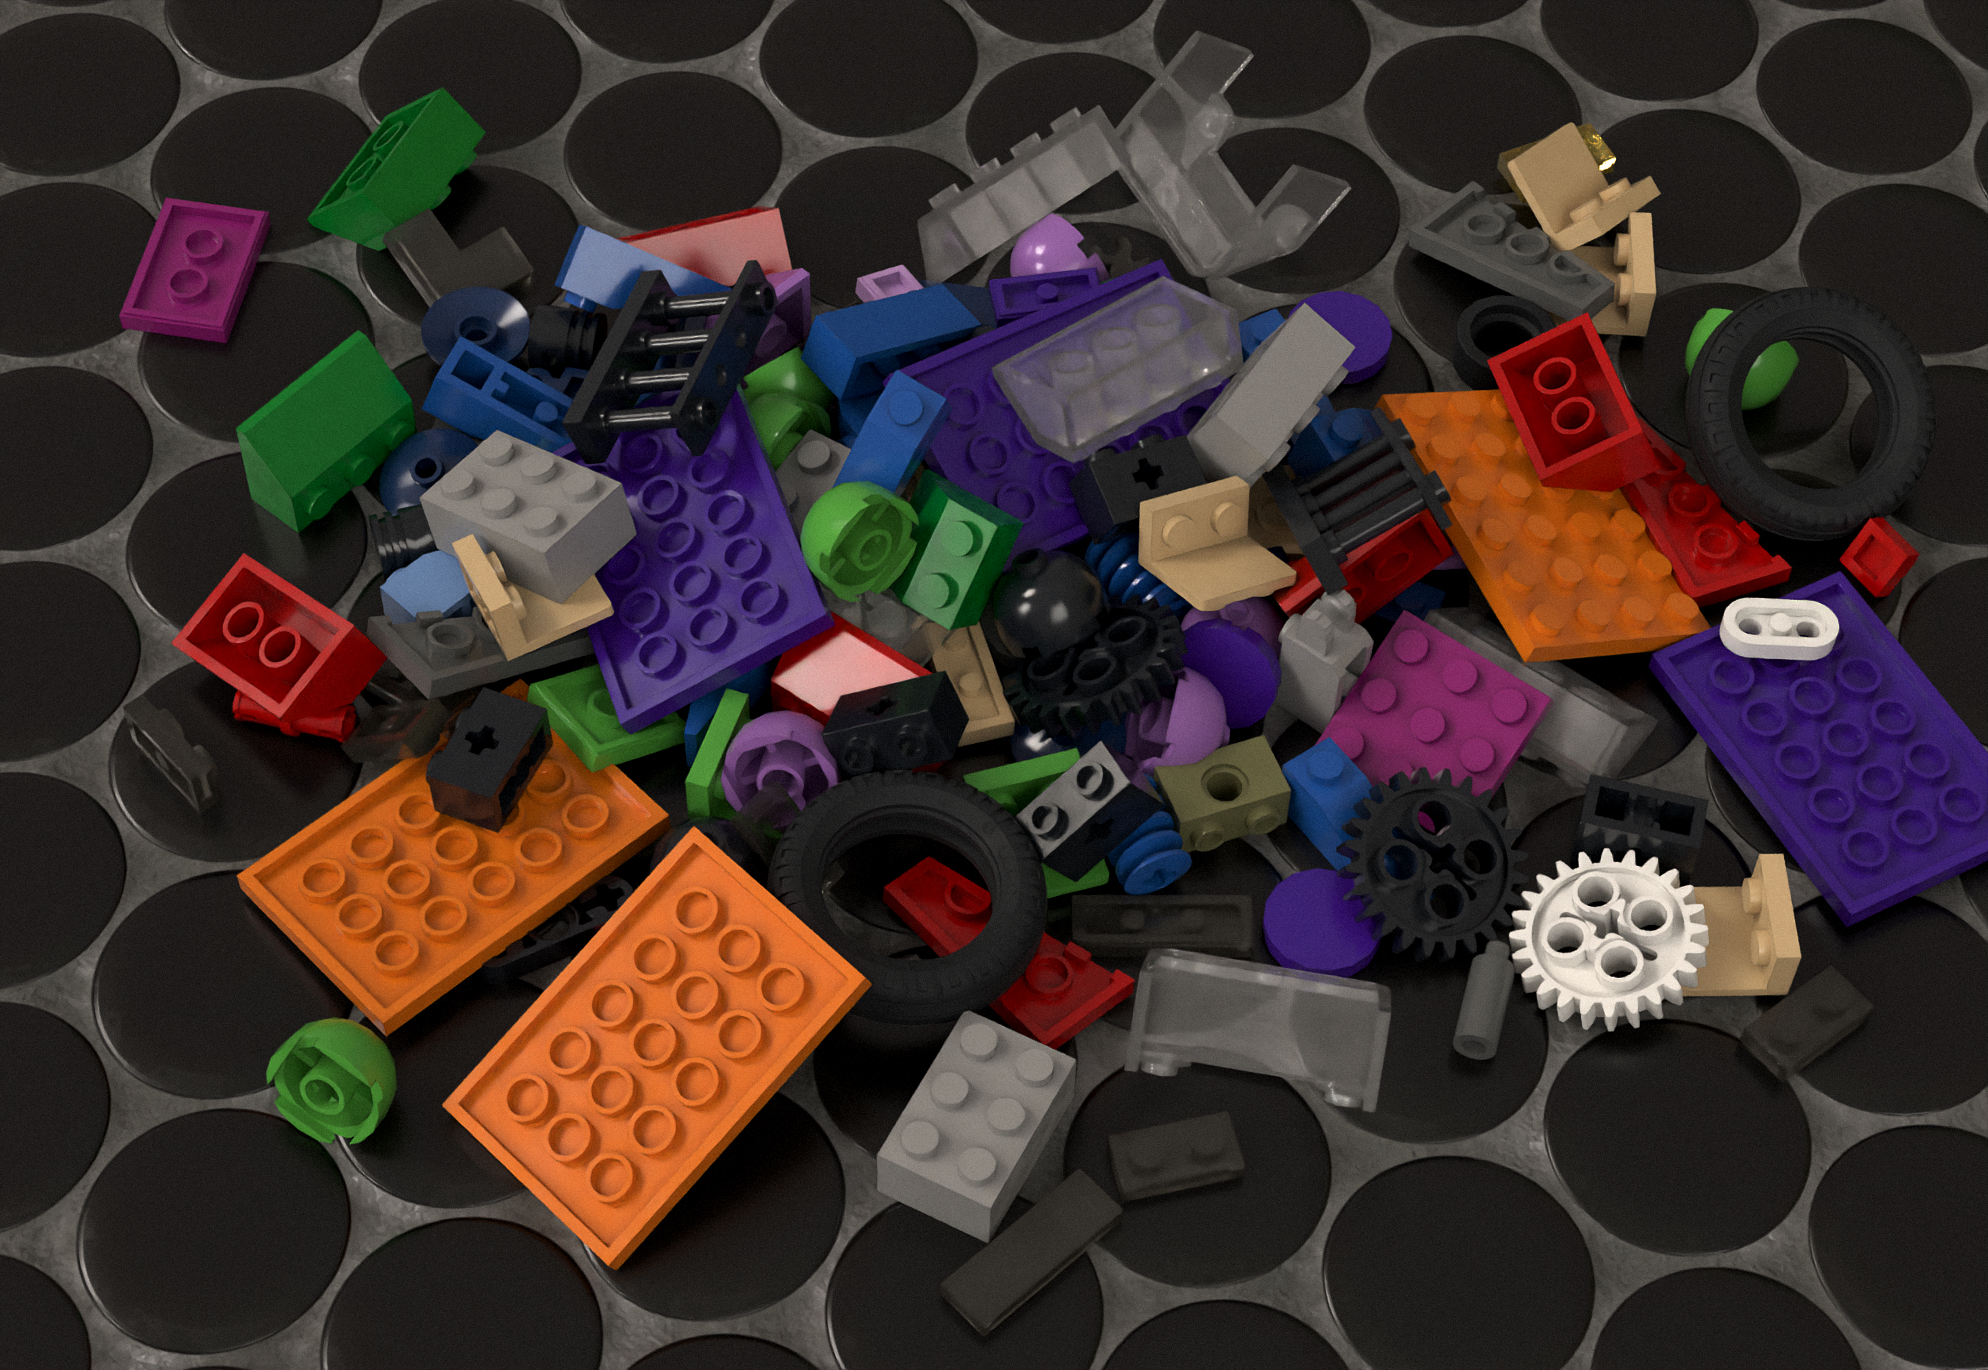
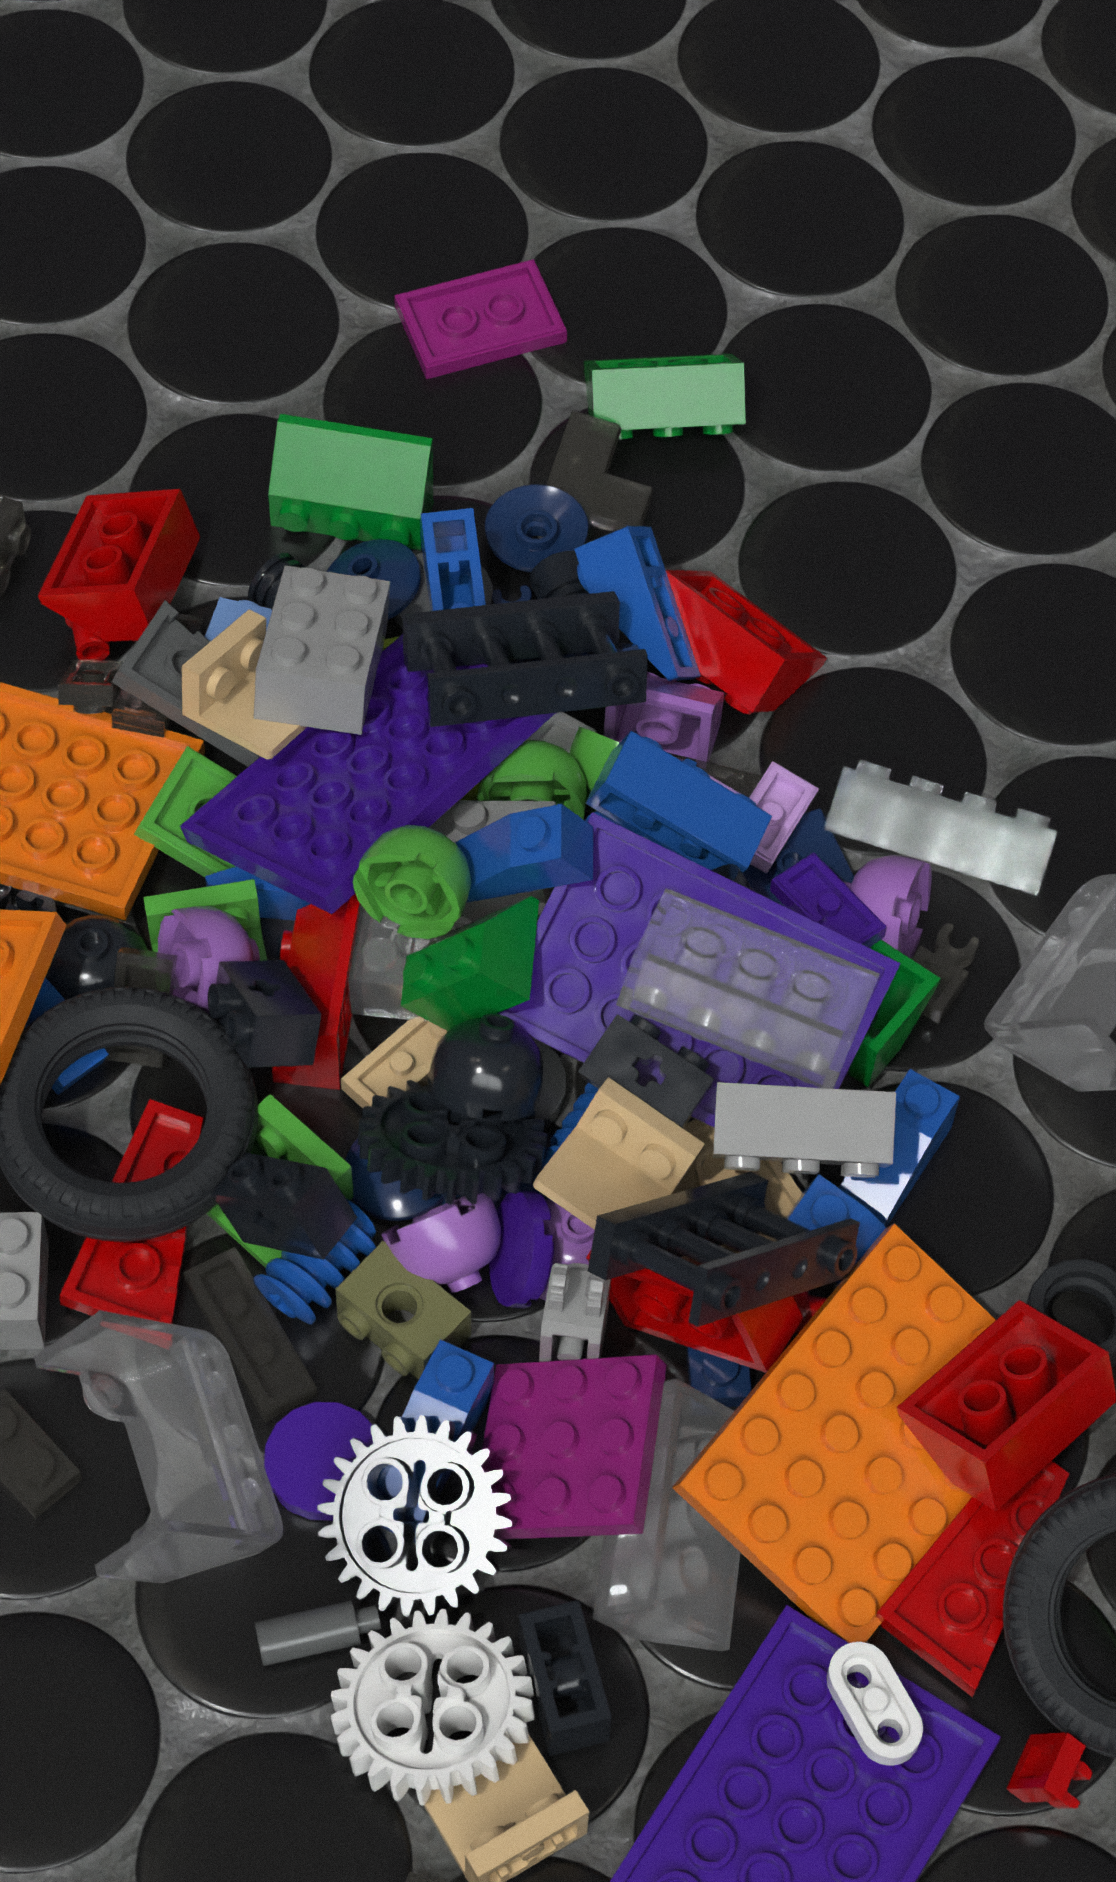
camera: 60 degrees right, 5 degrees up
(489, 759) = (91, 756): black brick -> none
(1361, 325) = (998, 1173): dark purple tile -> none

